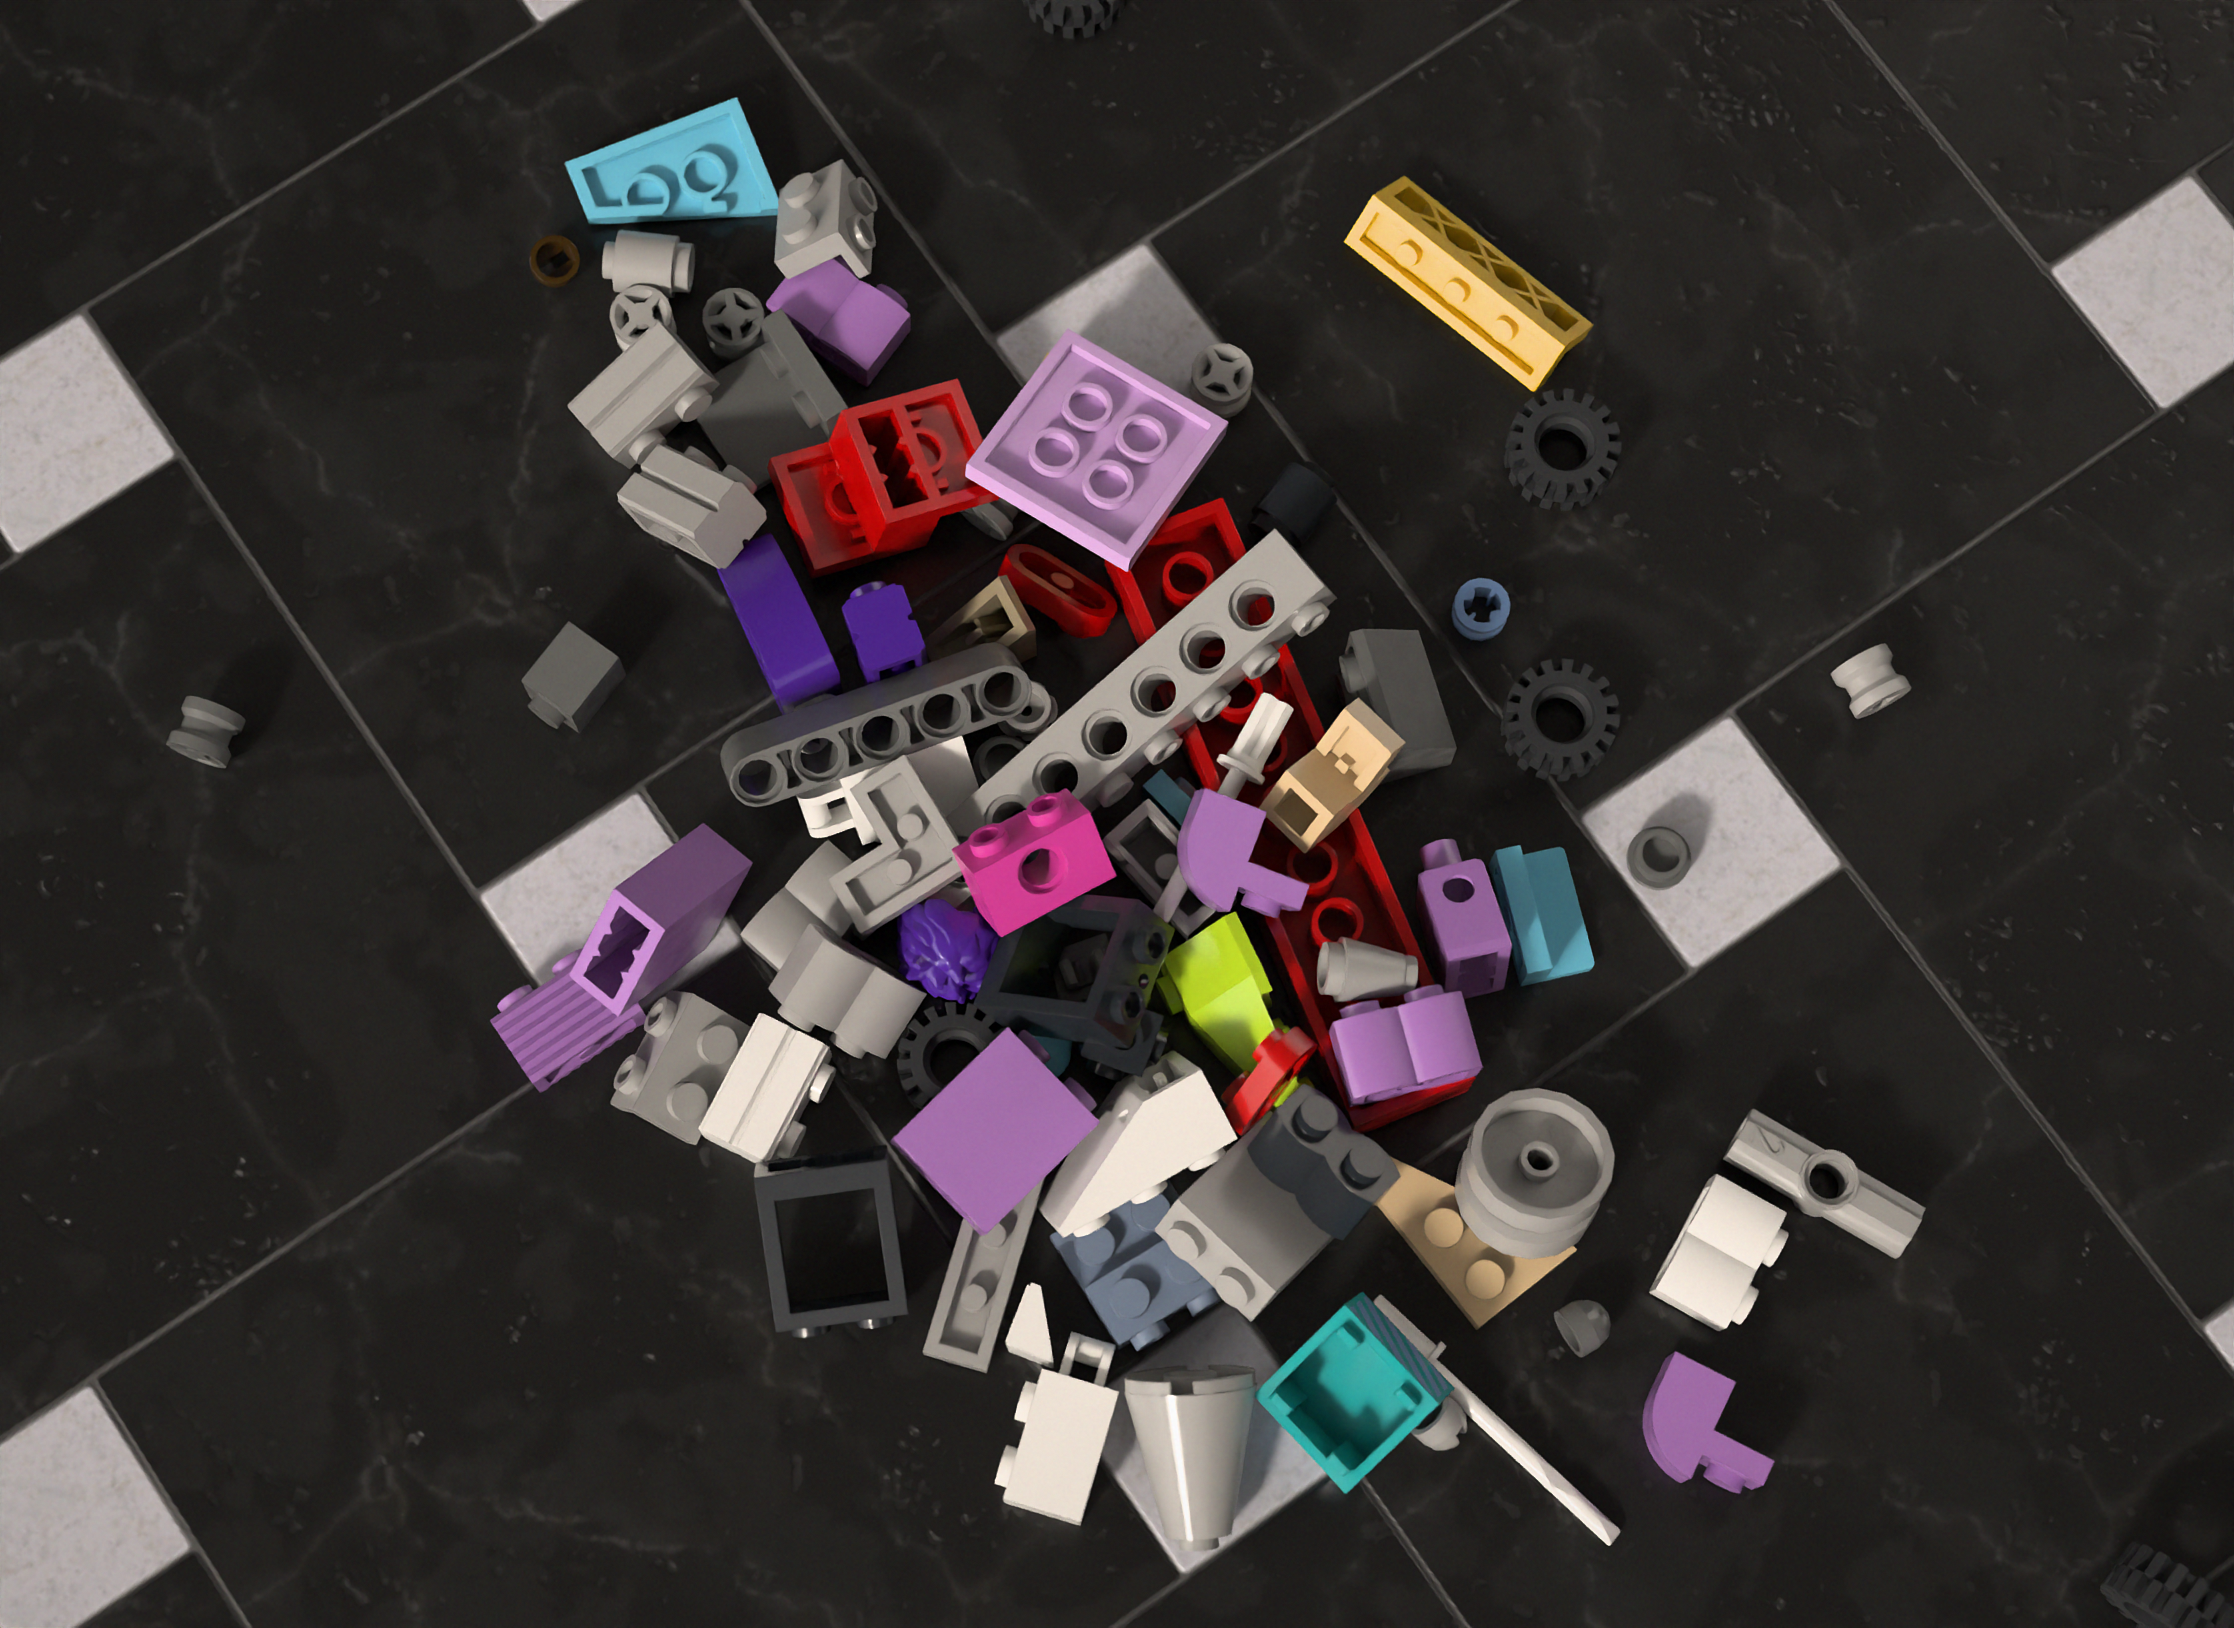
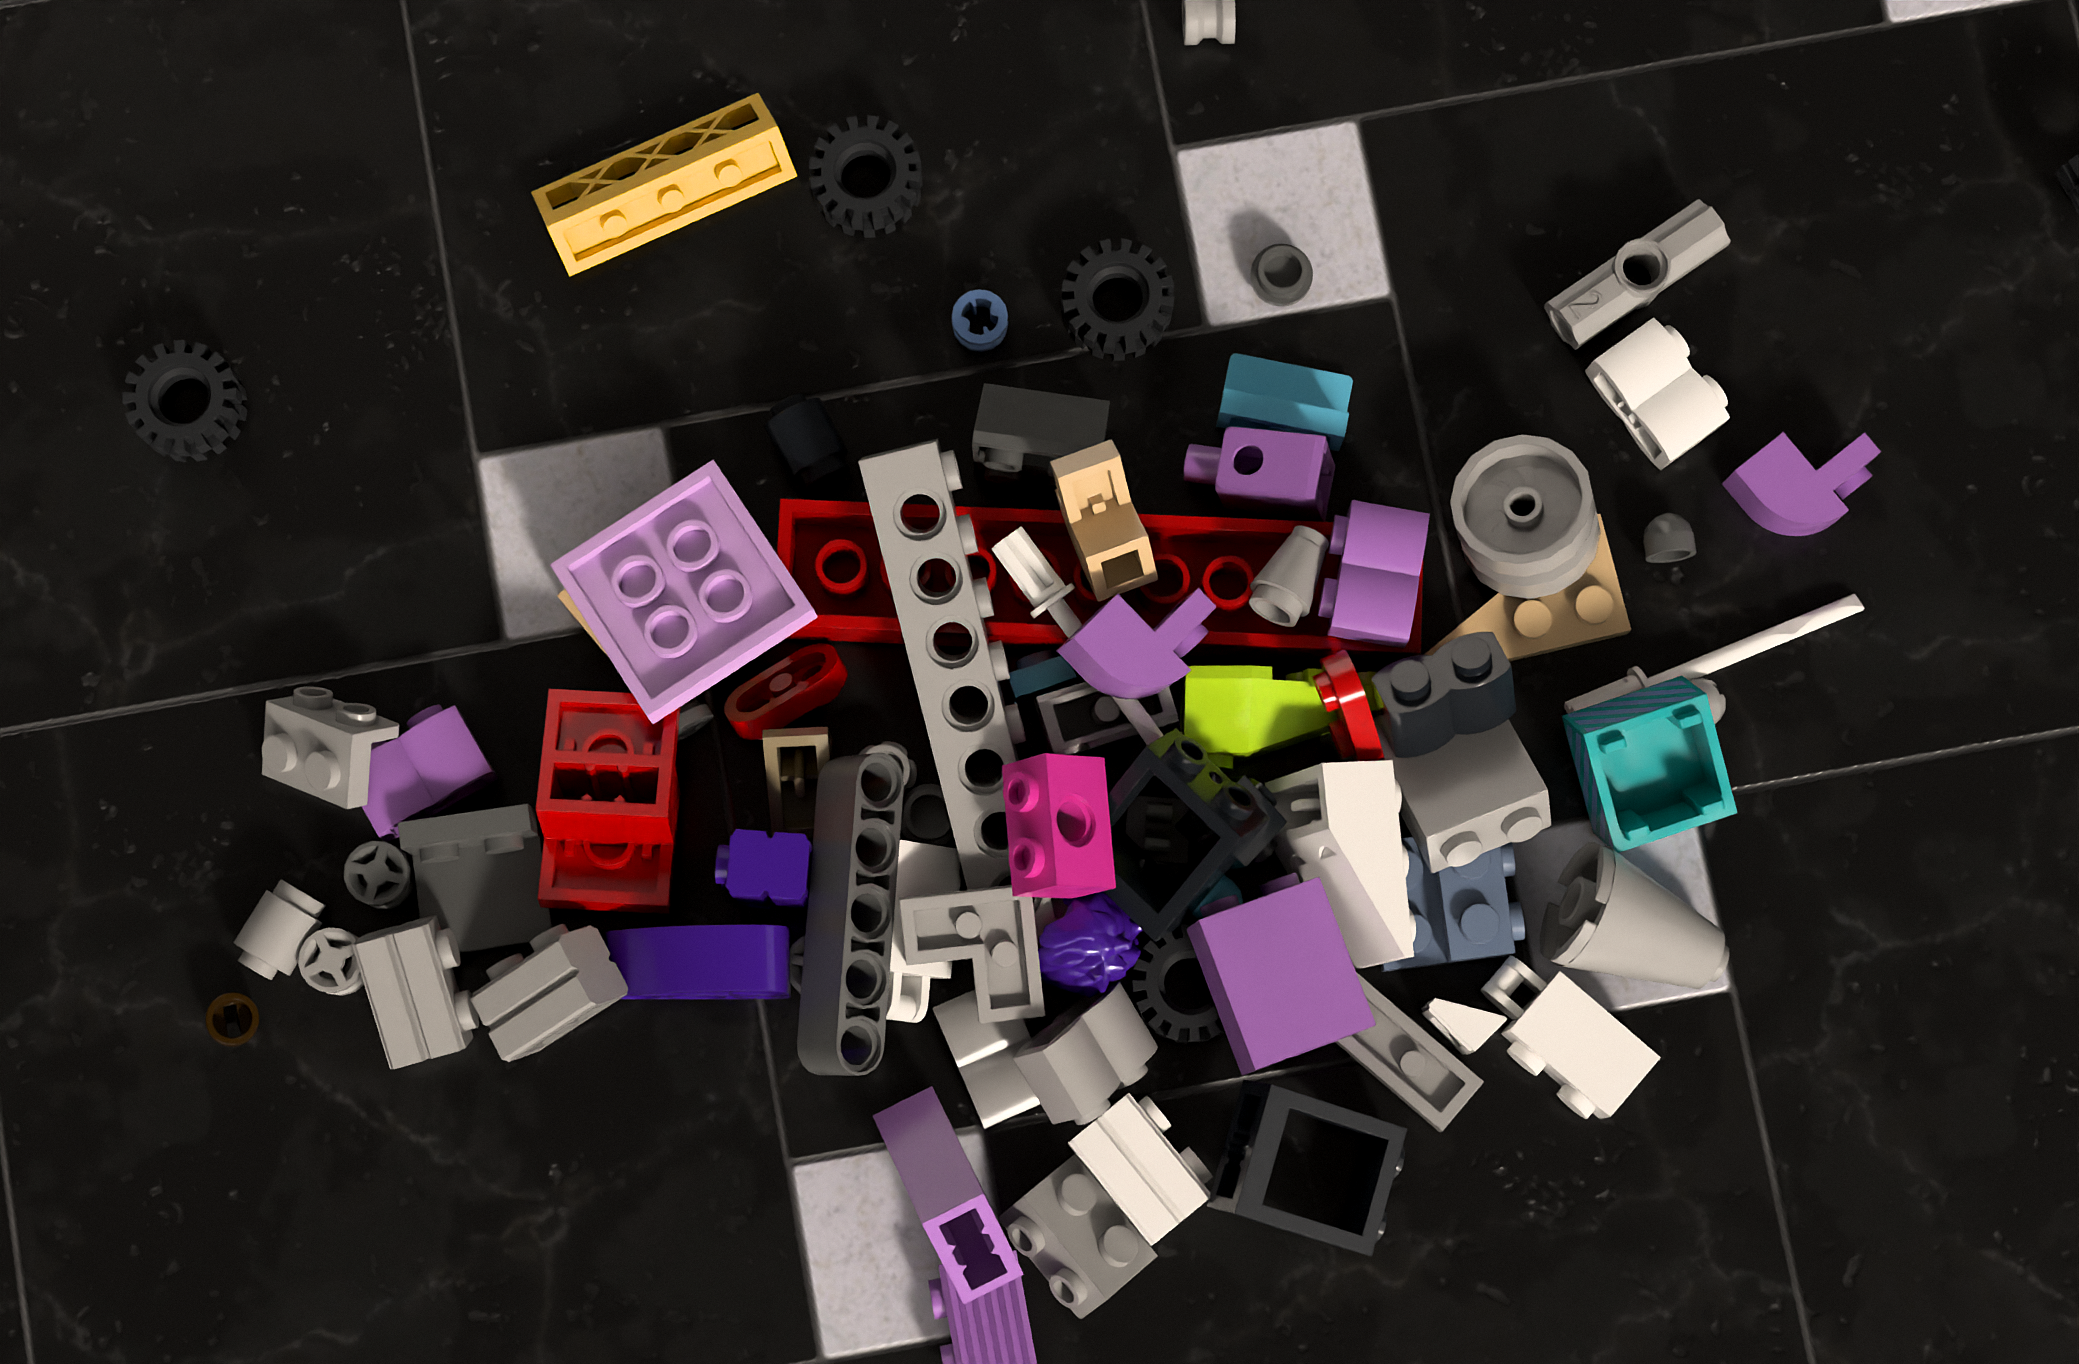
camera: 65 degrees left, 5 degrees up
(572, 679) = (661, 1181): dark grey brick -> none
(678, 172) = (196, 862): medium azure wing -> none
(1219, 367) = (650, 437): light grey wheel -> none

